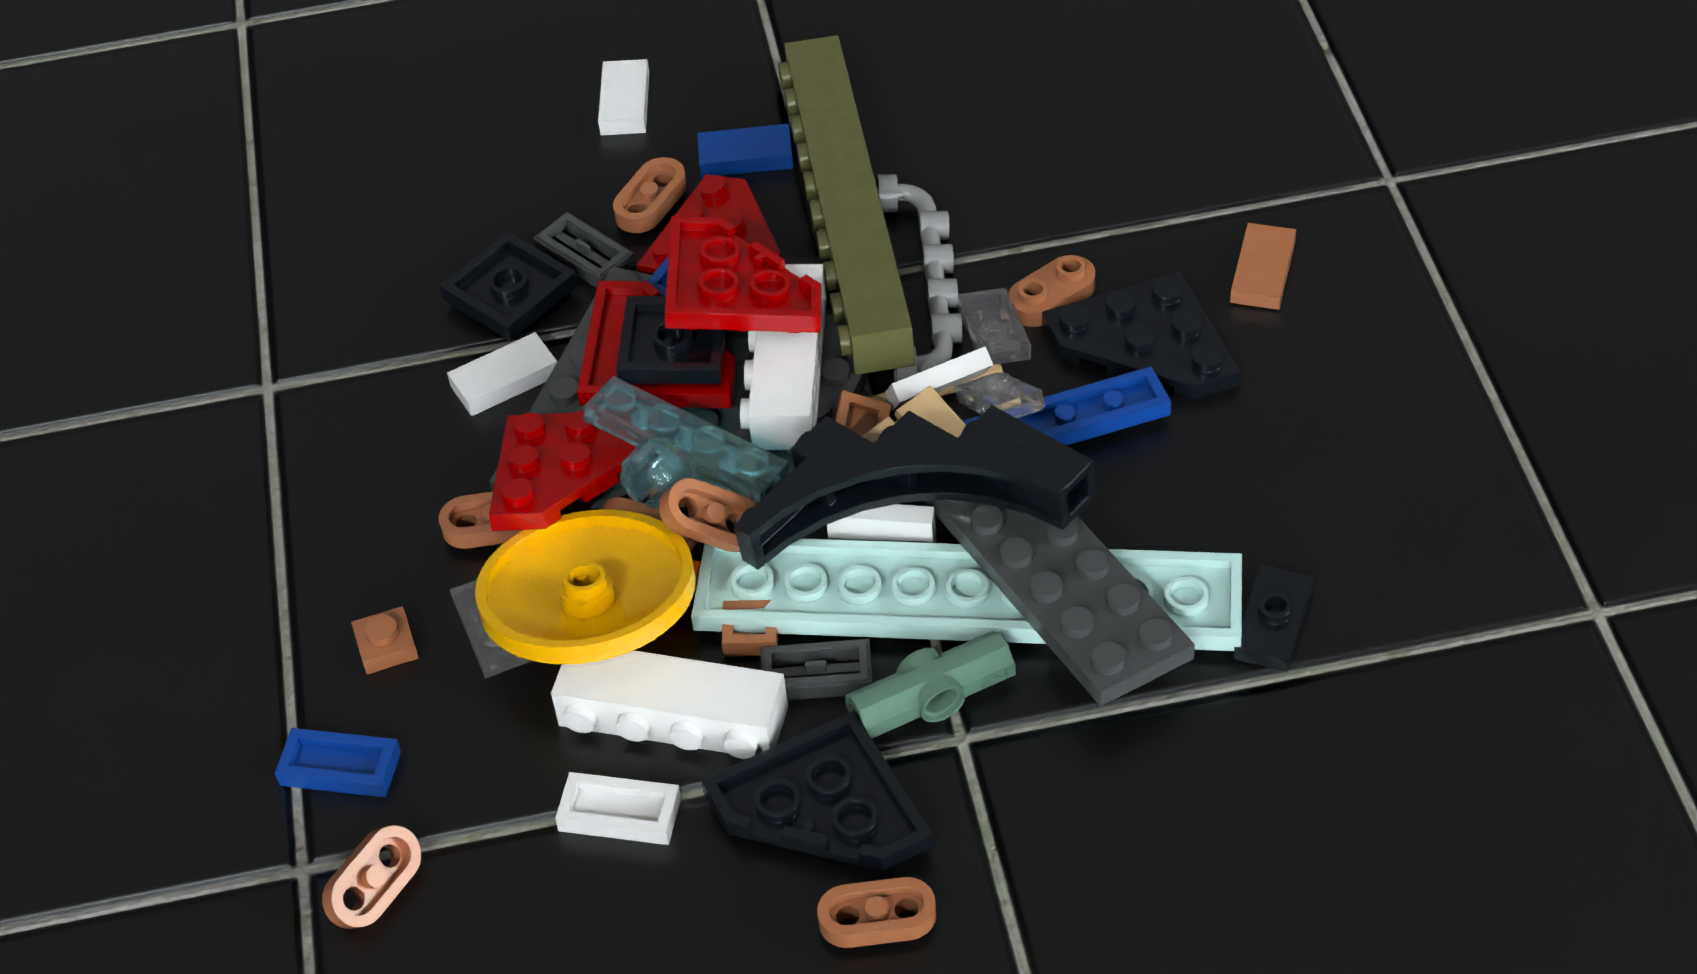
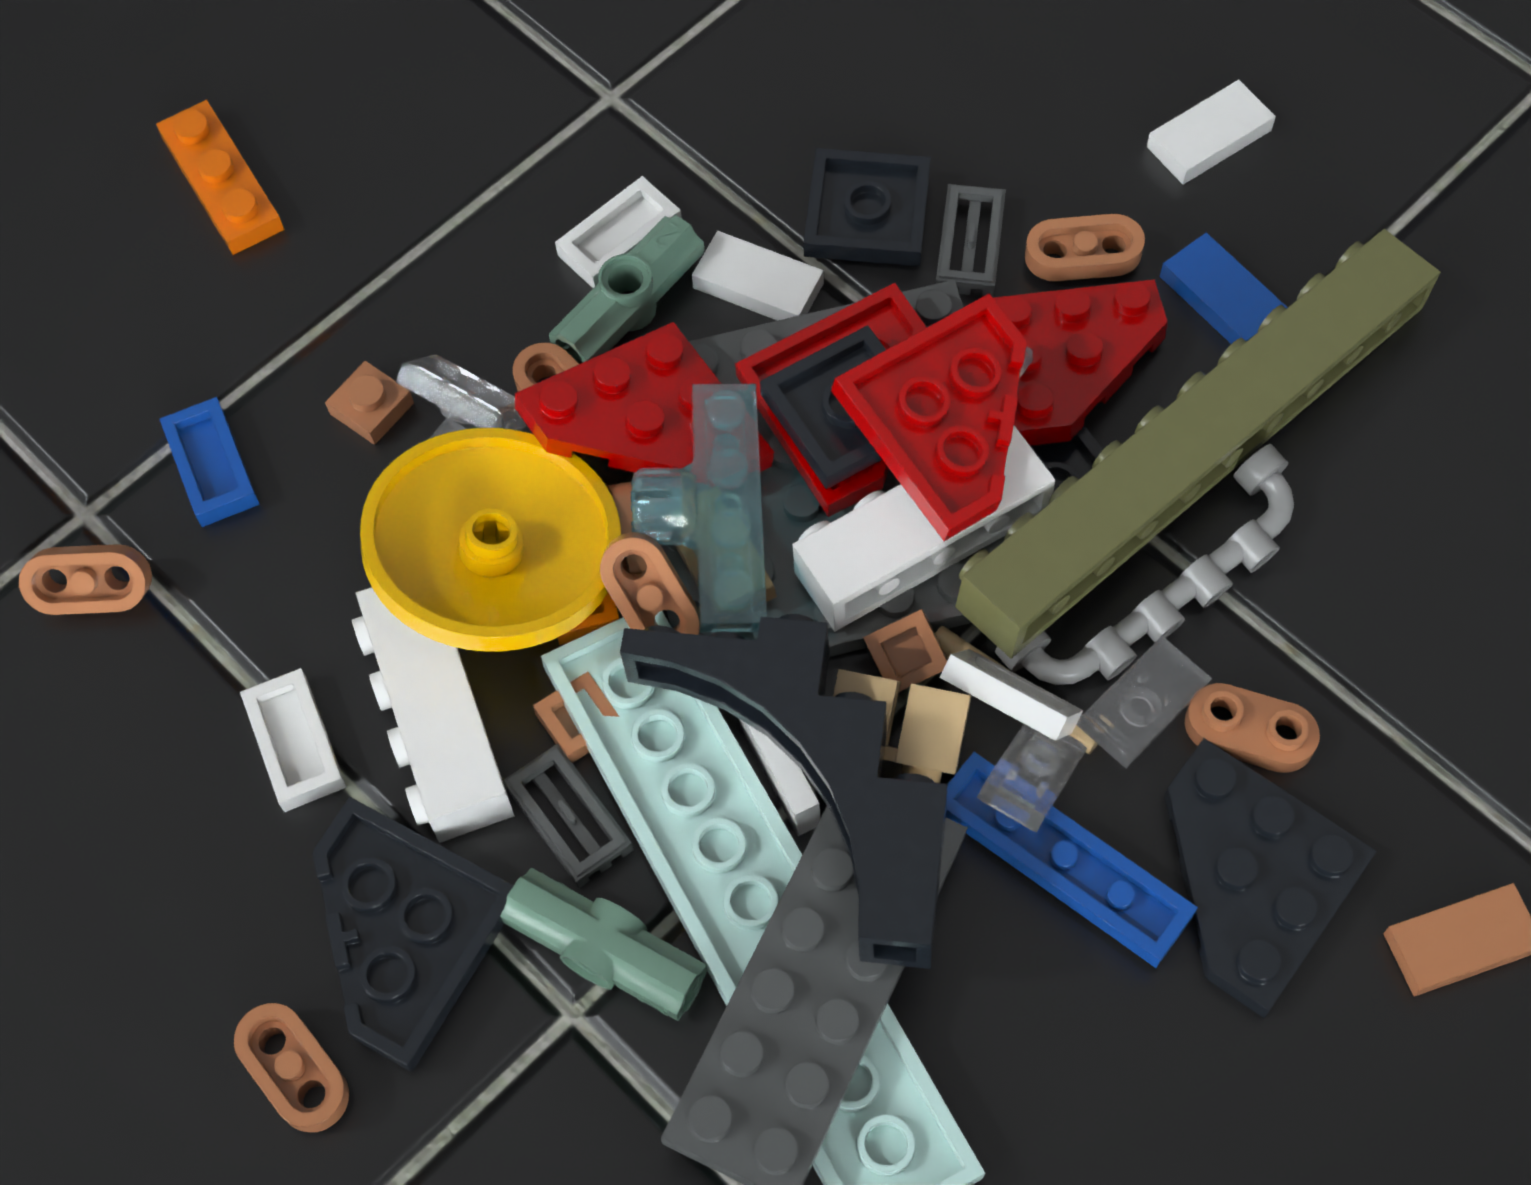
camera: 55 degrees right, 15 degrees up
(90, 648) = (220, 177): none -> orange plate
(389, 432) = (614, 229): none -> white tile
(438, 575) = (460, 393): none -> clear plate
(448, 437) = (646, 270): none -> sand green piece

